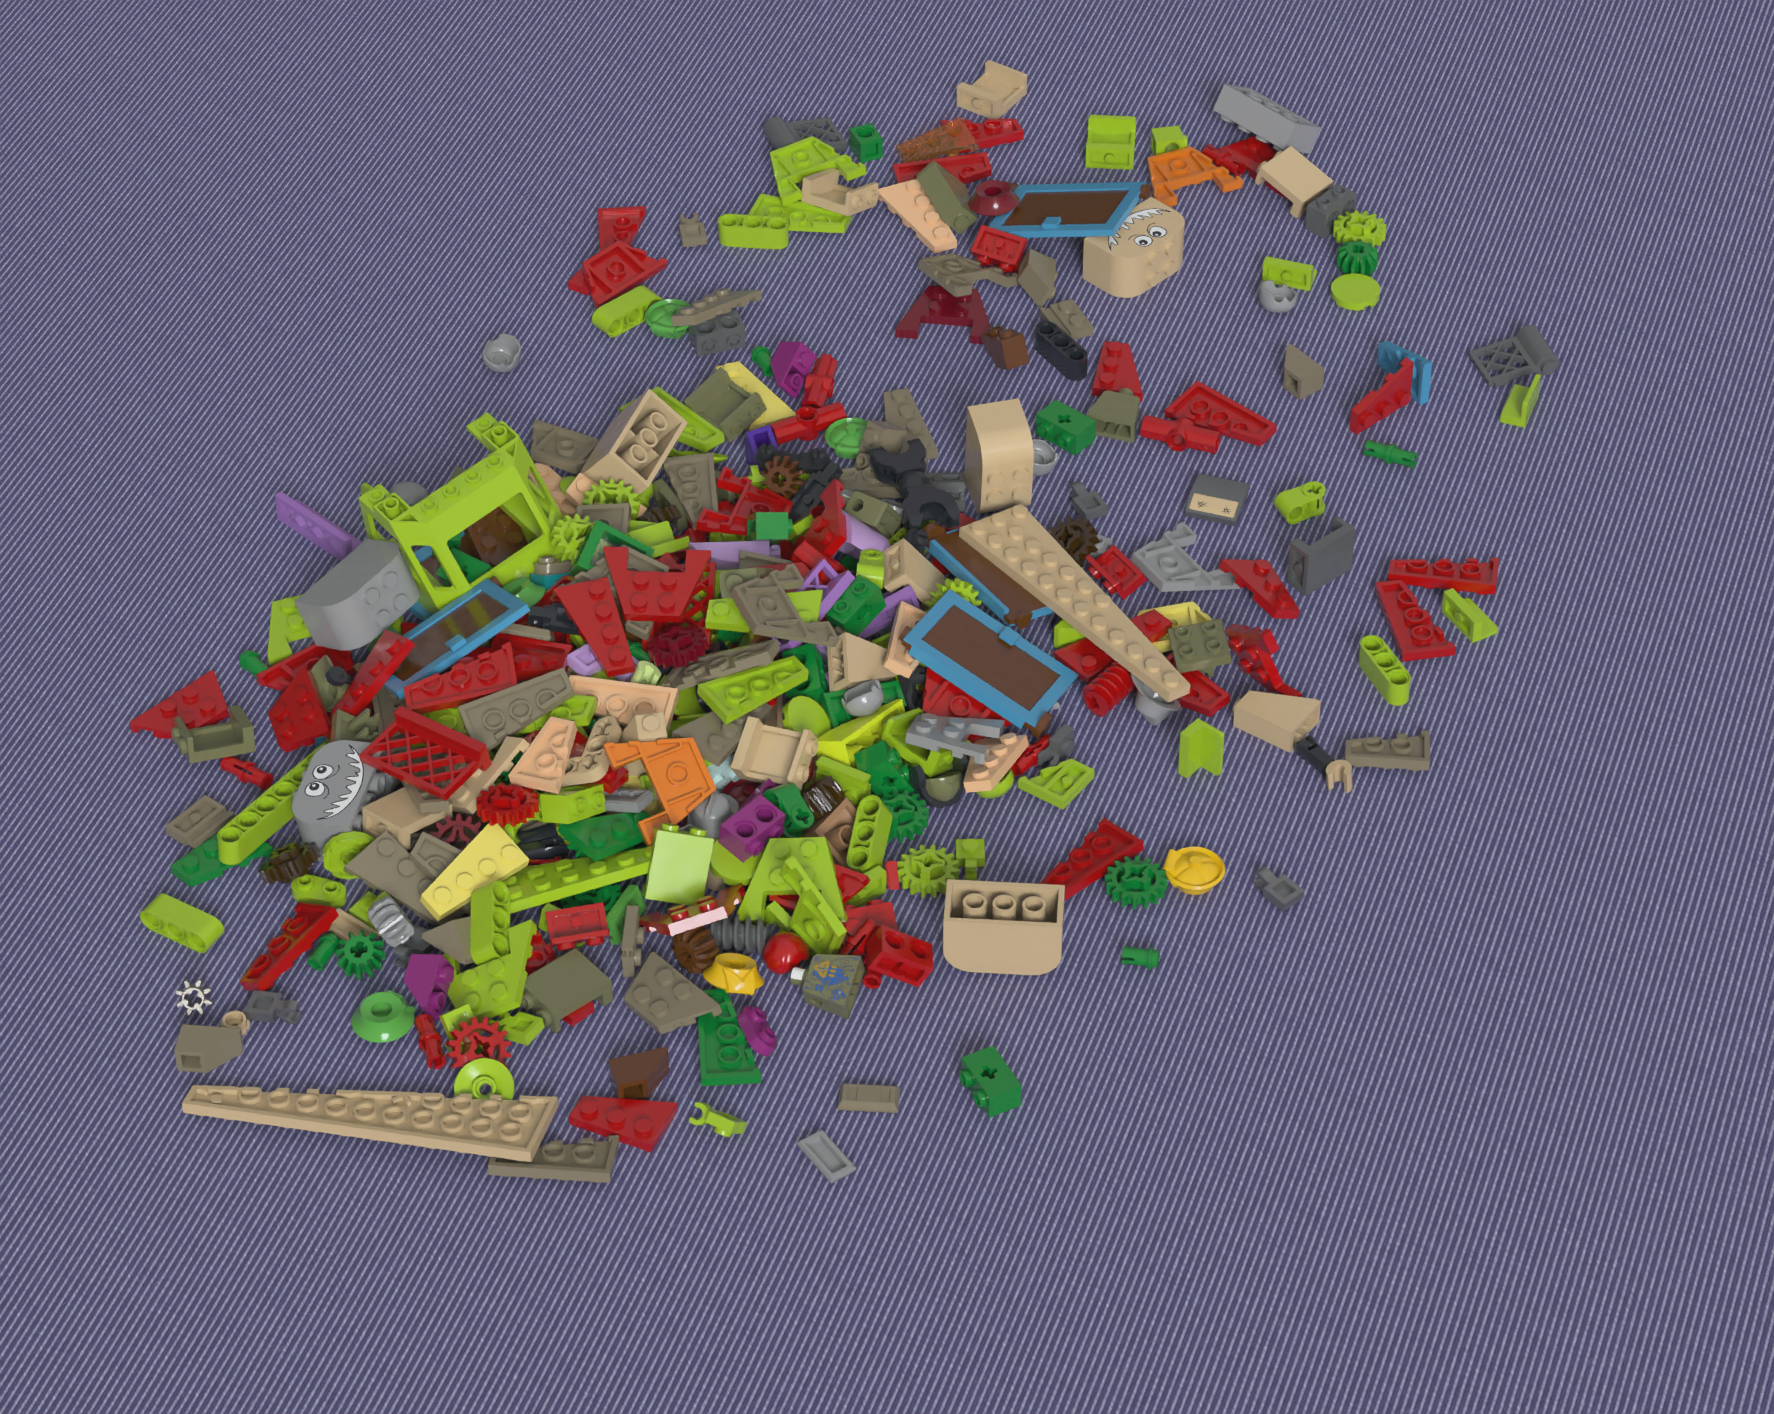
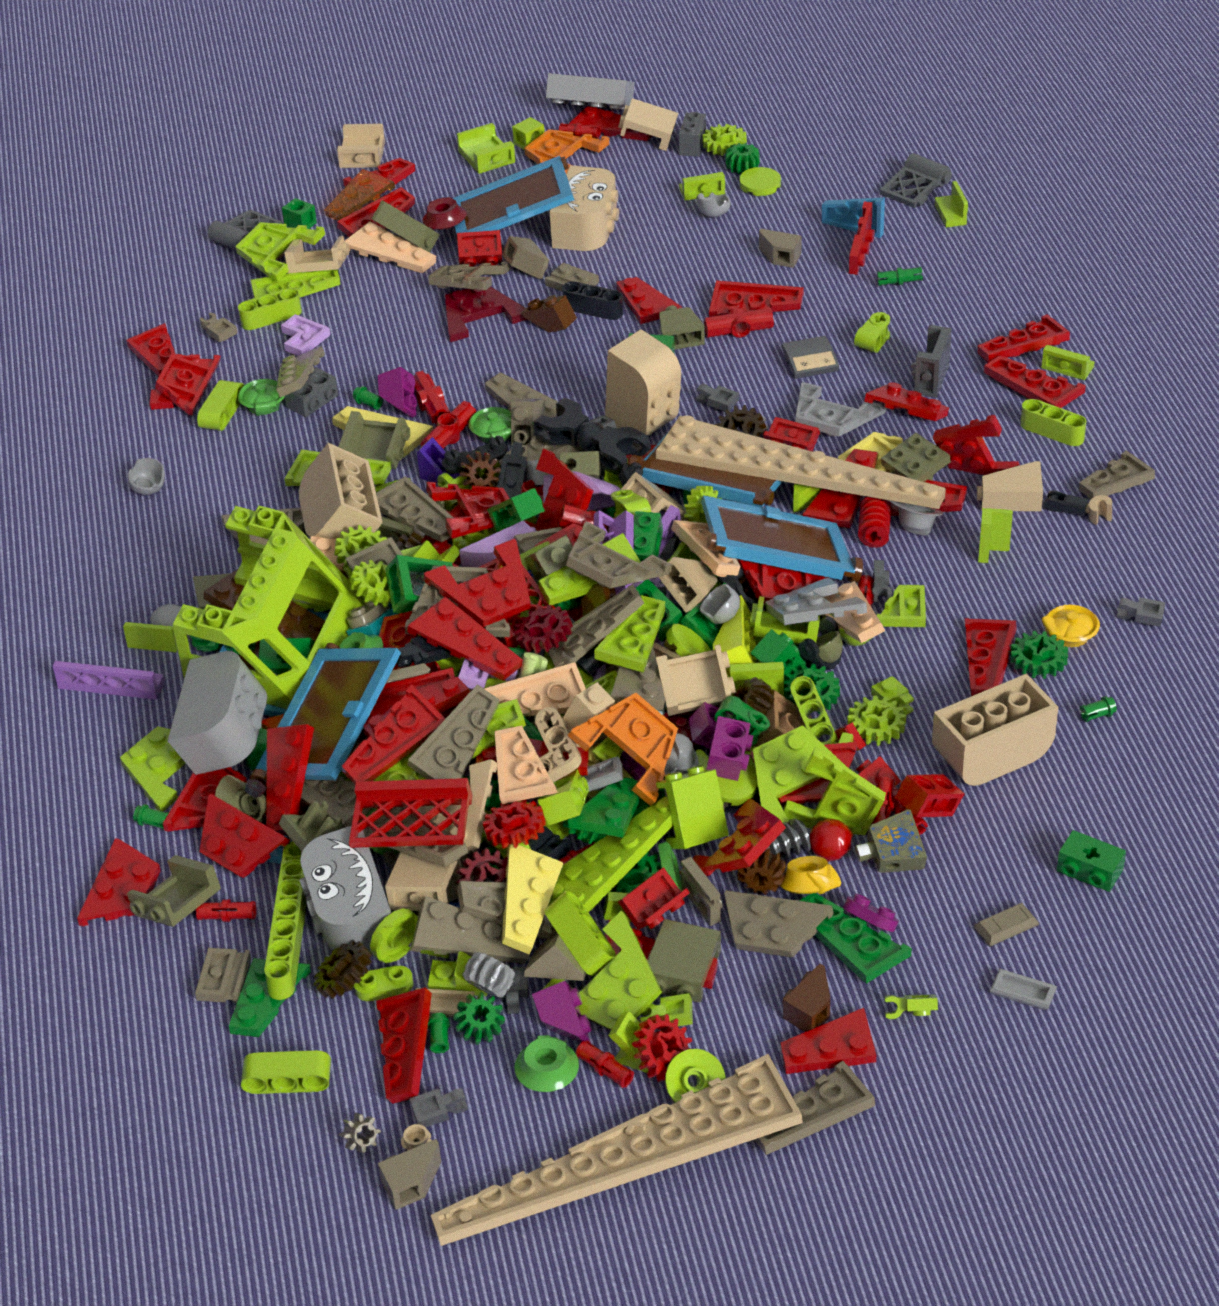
camera: 30 degrees left, 0 degrees up
(765, 271) = (304, 333): none -> lavender plate

